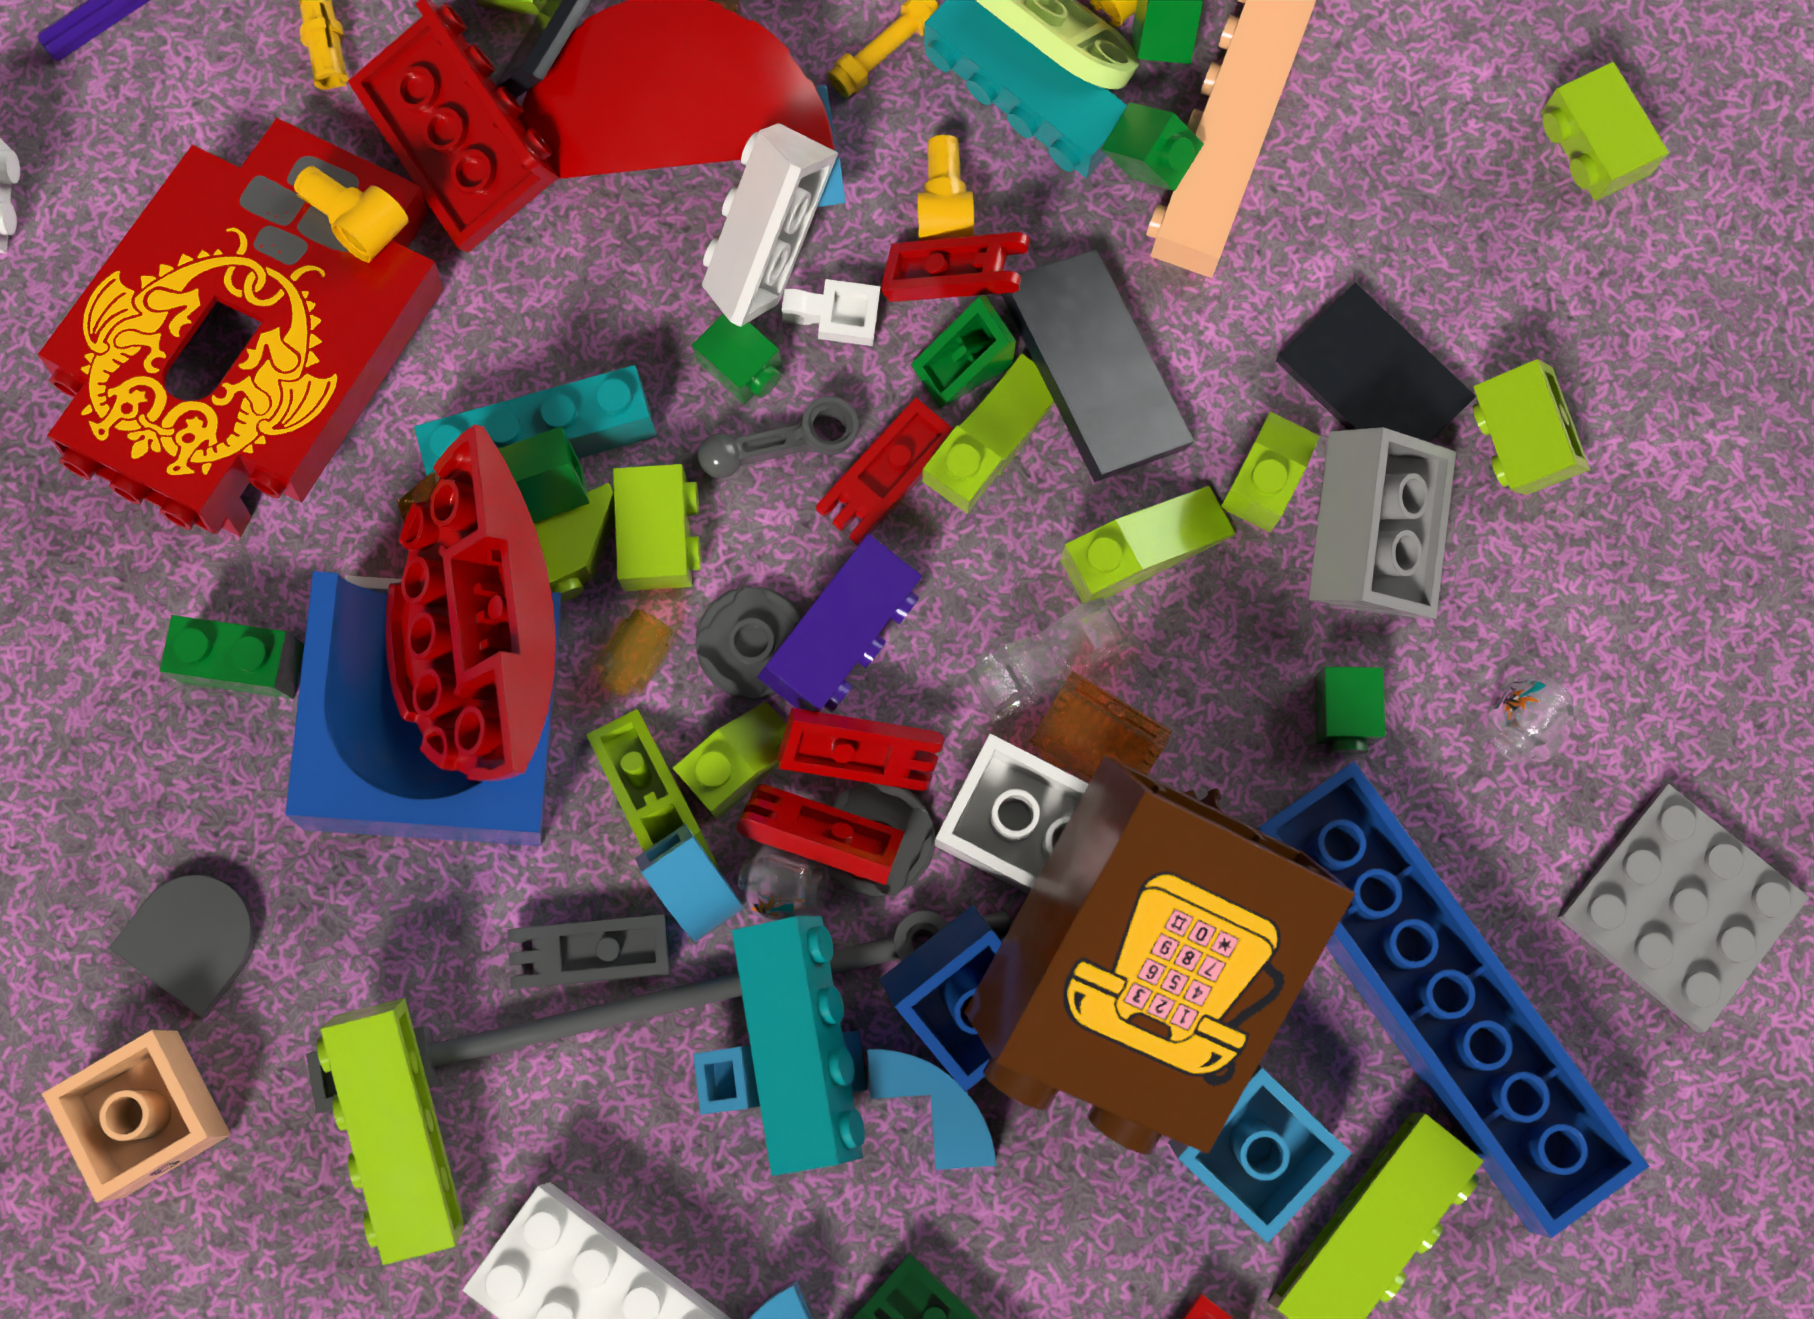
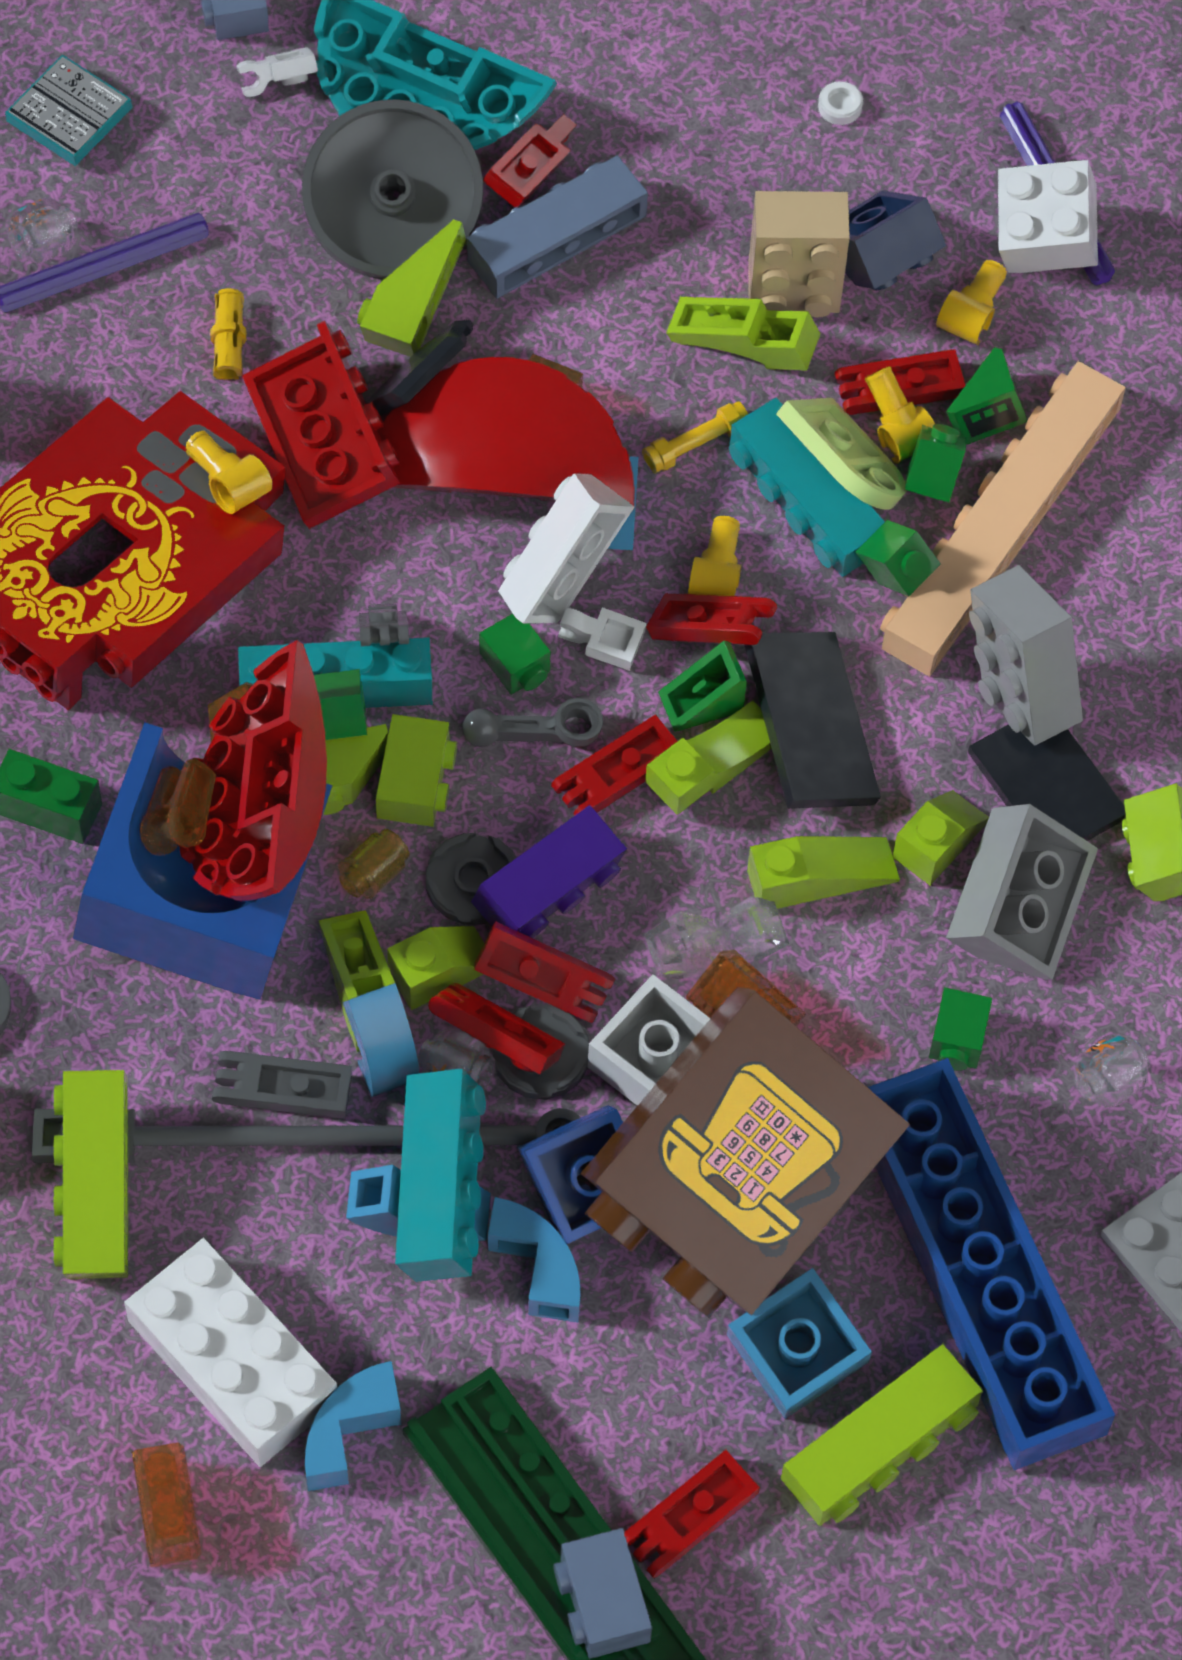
camera: 10 degrees right, 15 degrees down
(385, 658) = (178, 808): none -> clear orange piece
(578, 363) = (383, 625): none -> dark grey hinge
(1334, 237) = (1026, 655): none -> light grey brick

